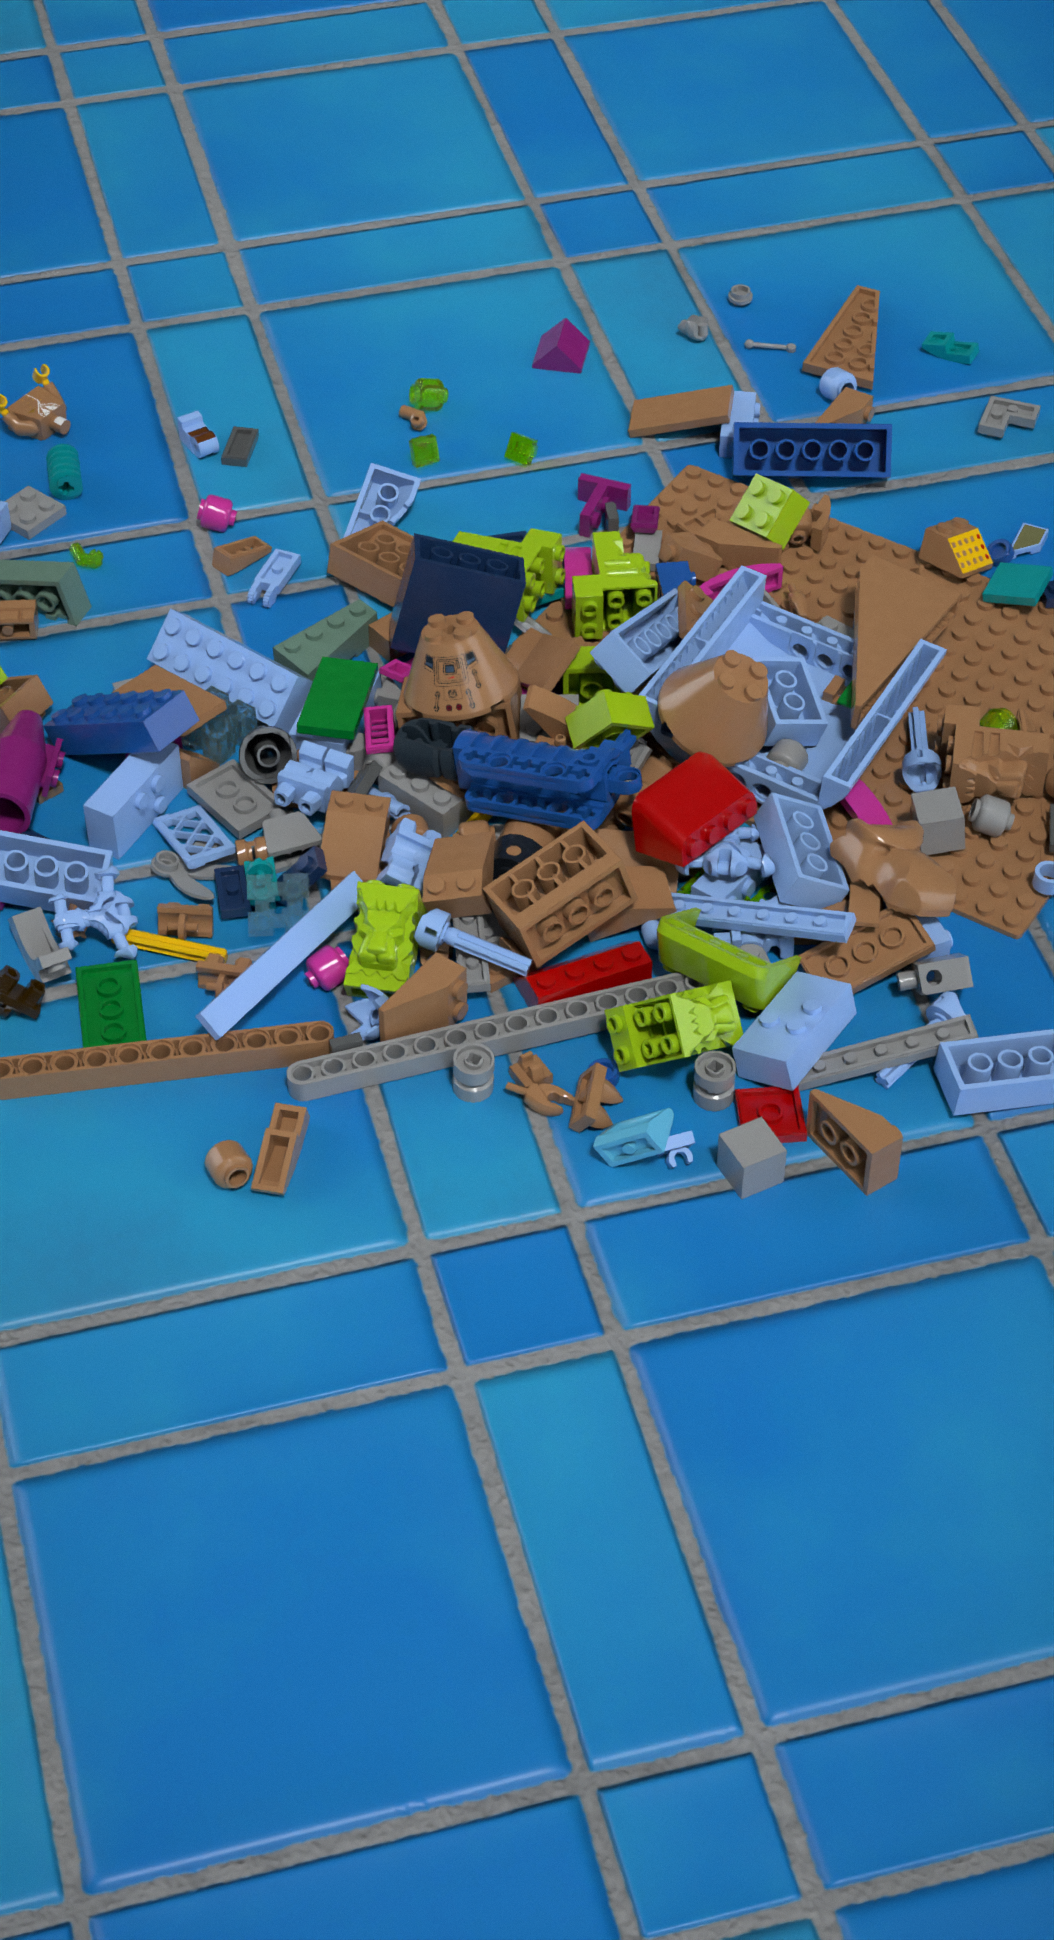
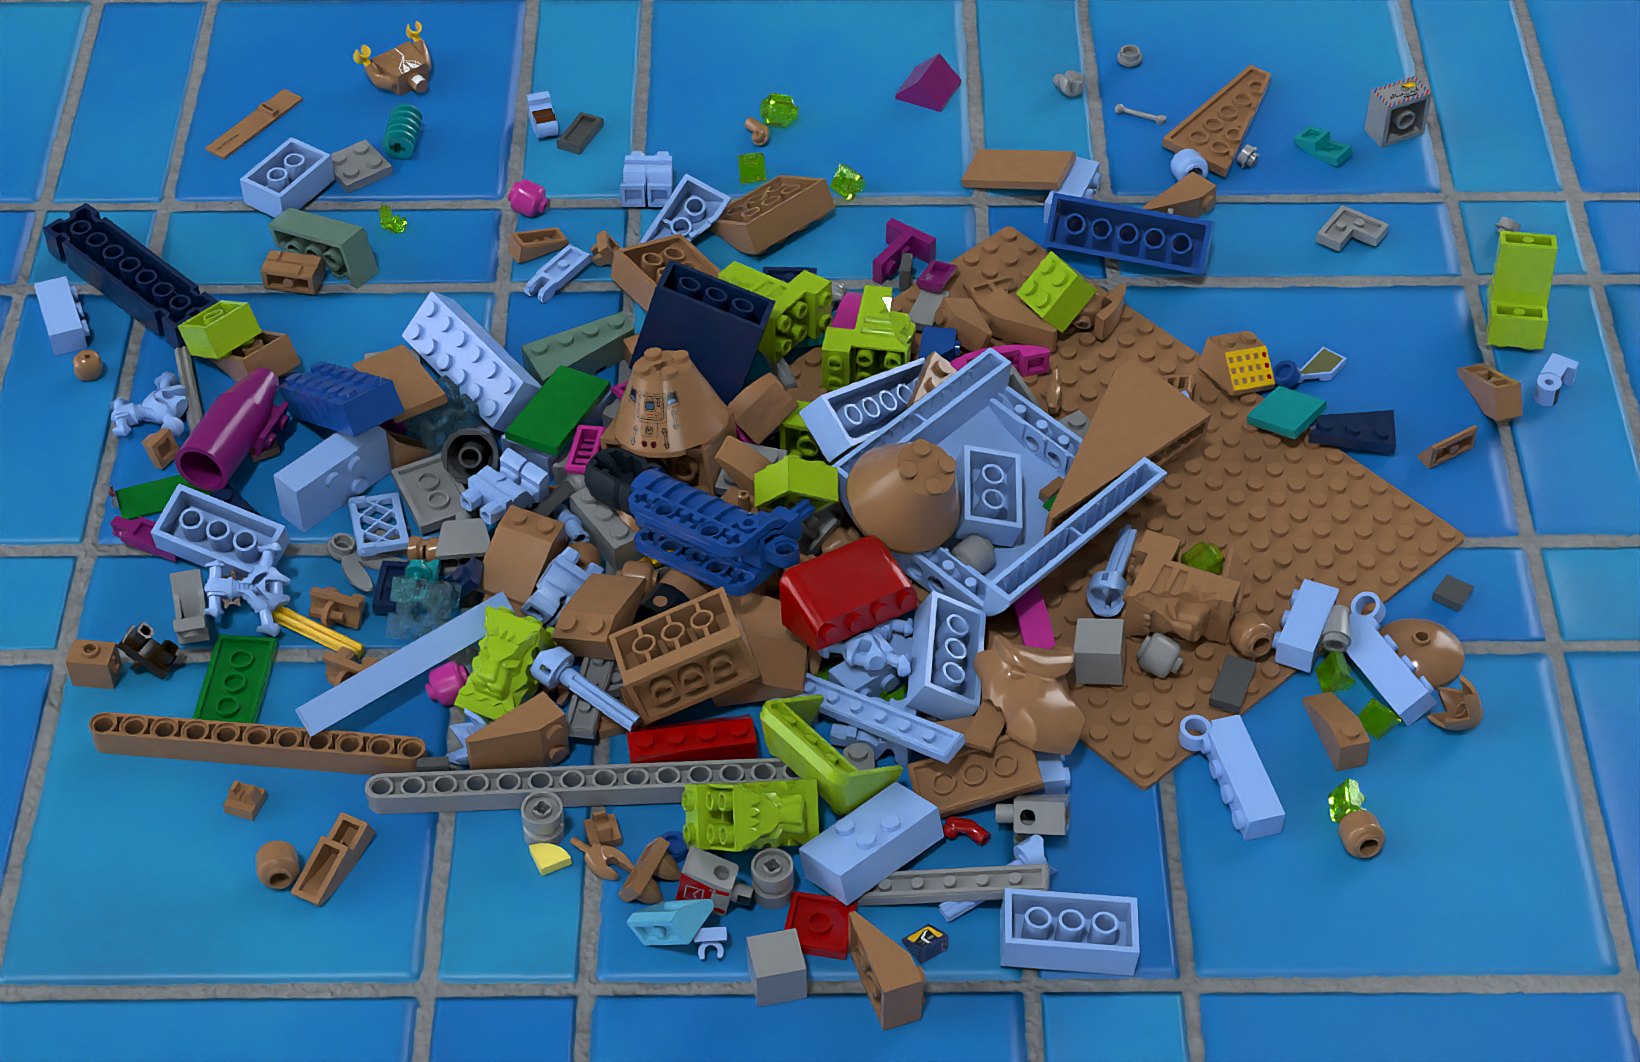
camera: 15 degrees right, 0 degrees up
(167, 1114) = (244, 800): none -> medium nougat tile
(312, 549) = (604, 249): none -> medium nougat tile
(328, 474) = (646, 176): none -> light blue hips
(463, 487) = (773, 212): none -> medium nougat slope
(489, 1106) = (549, 857): none -> light yellow tile
(657, 1089) = (712, 878): none -> light grey torso
(874, 1002) = (966, 826): none -> red arm
(881, 1104) = (926, 943): none -> slope
(886, 367) = (1248, 156): none -> light grey plate
(1010, 305) = (1397, 111): none -> light grey brick

